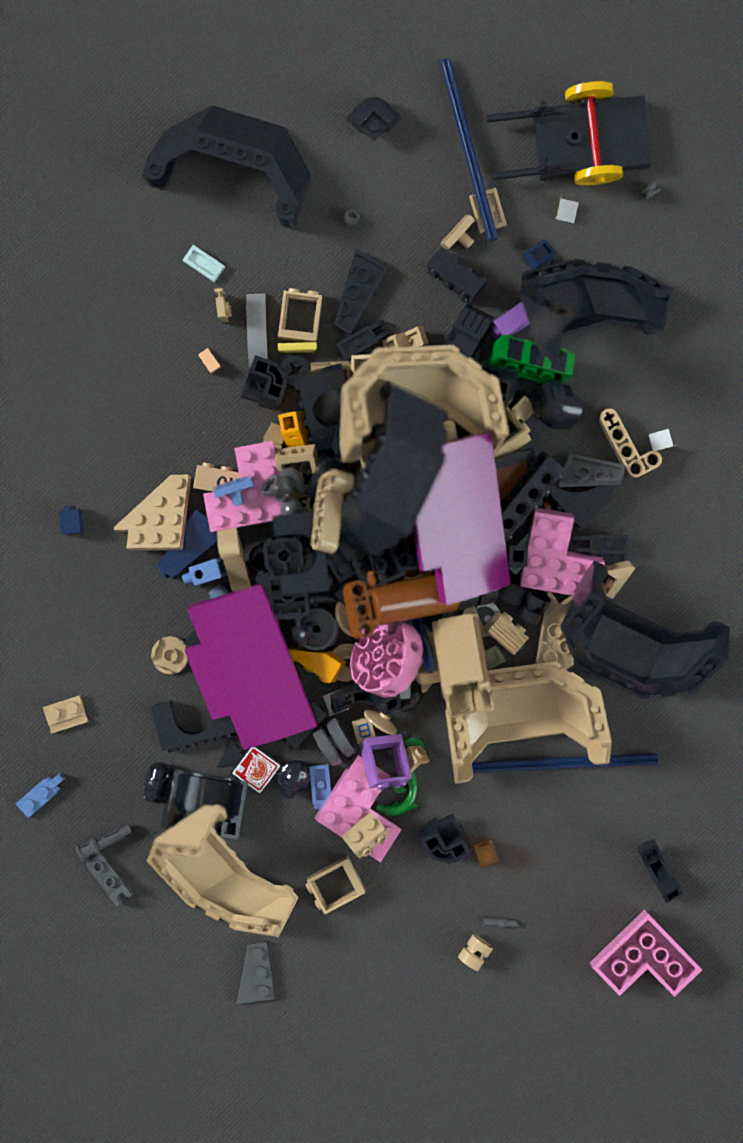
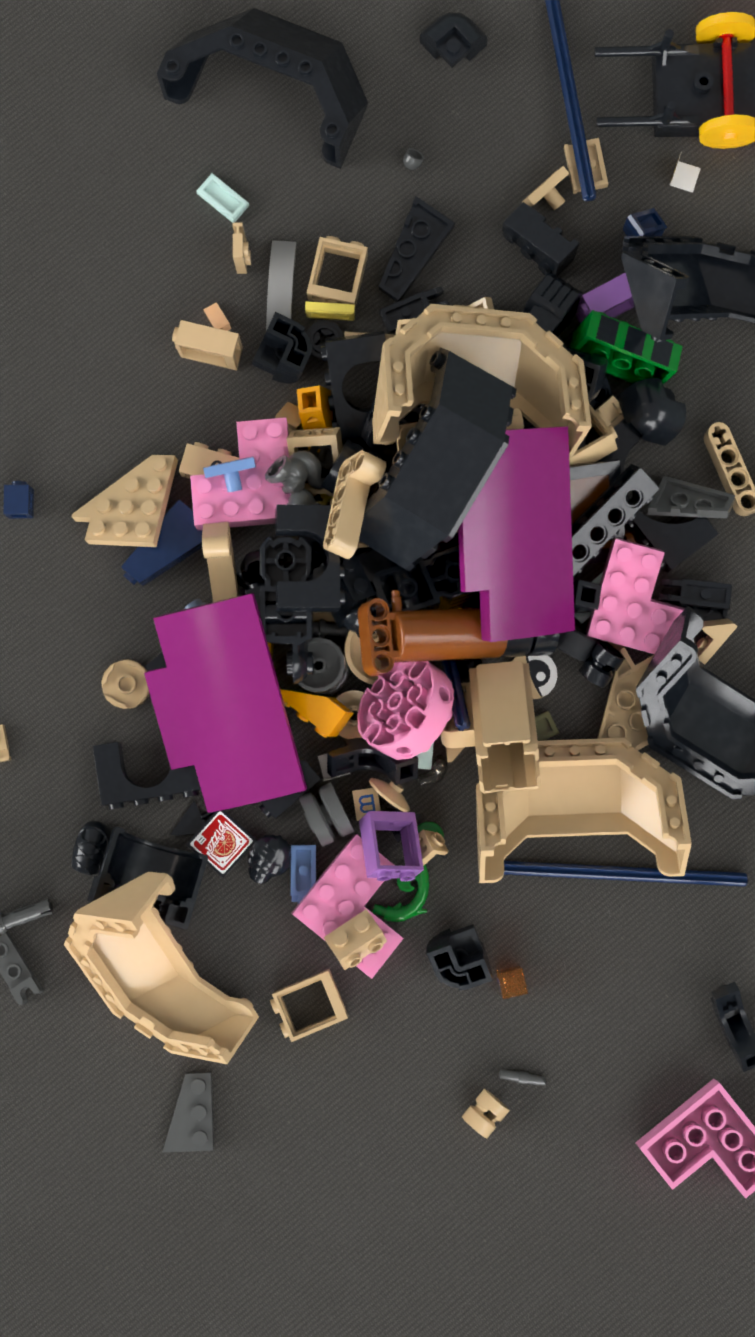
camera: 10 degrees right, 5 degrees down
(205, 385) = (208, 344): none -> tan window
(212, 570) = (183, 580): medium blue torso -> none
(505, 632) = (562, 694): tan brick -> none

